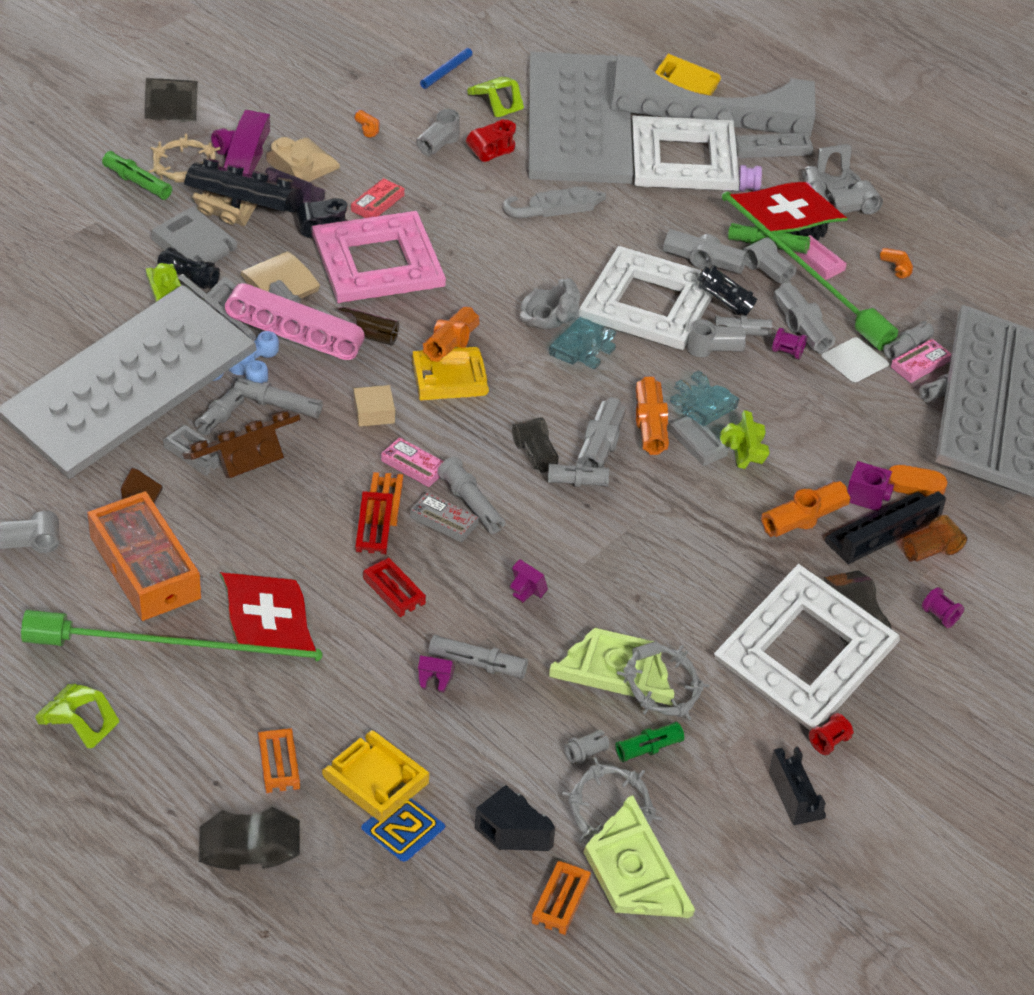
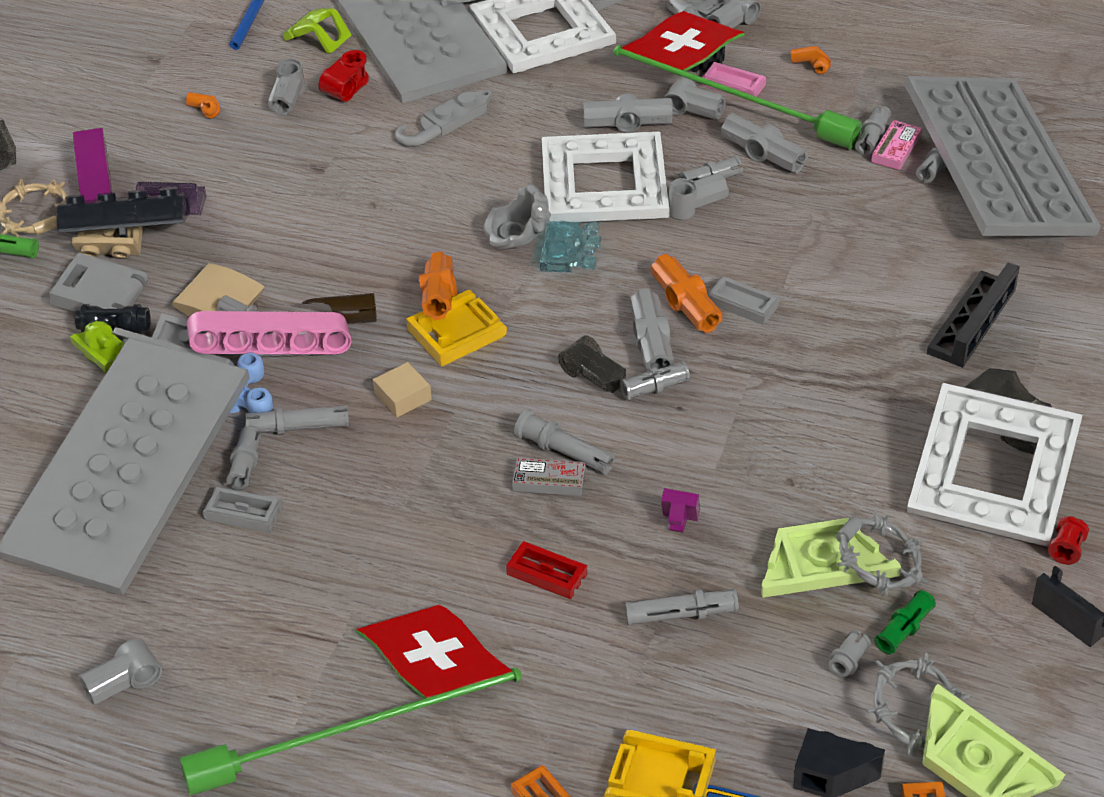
camera: 20 degrees left, 0 degrees up
(138, 482) = (213, 576): reddish brown slope -> none
(144, 555) = (269, 644): brick -> none
(222, 138) = (64, 171): magenta tile -> none
(248, 448) = (301, 484): reddish brown bracket -> none
(301, 158) = (157, 163): tan slope -> none
(320, 213) = (220, 217): black piece -> none
(348, 285) = (358, 238): bright pink plate -> none
(372, 546) = (494, 536): red tile -> none
(377, 199) = (264, 177): coral tile -> none
(386, 482) = (469, 463): orange tile -> none
(412, 461) = (480, 432): bright pink tile -> none
(437, 667) = (657, 635): magenta tile -> none
(703, 402) = (725, 260): clear light blue plate -> none
(734, 297) = (689, 146): black piece -> none
(746, 440) = (790, 282): lime hips -> none
(750, 178) = (623, 26): lavender wheel -> none
(753, 234) = (664, 79): bright green pin -> none
(789, 343) = (767, 173): magenta bush -> none
(805, 509) = (893, 328): orange piece -> none
(855, 359) = (834, 167): white sticker -> none
(870, 486) = (936, 283): magenta brick -> none
(915, 479) = (970, 261): orange tile -> none
(938, 537) = (1031, 308): clear orange piece -> none
(942, 607) = (1082, 373): magenta bush -> none

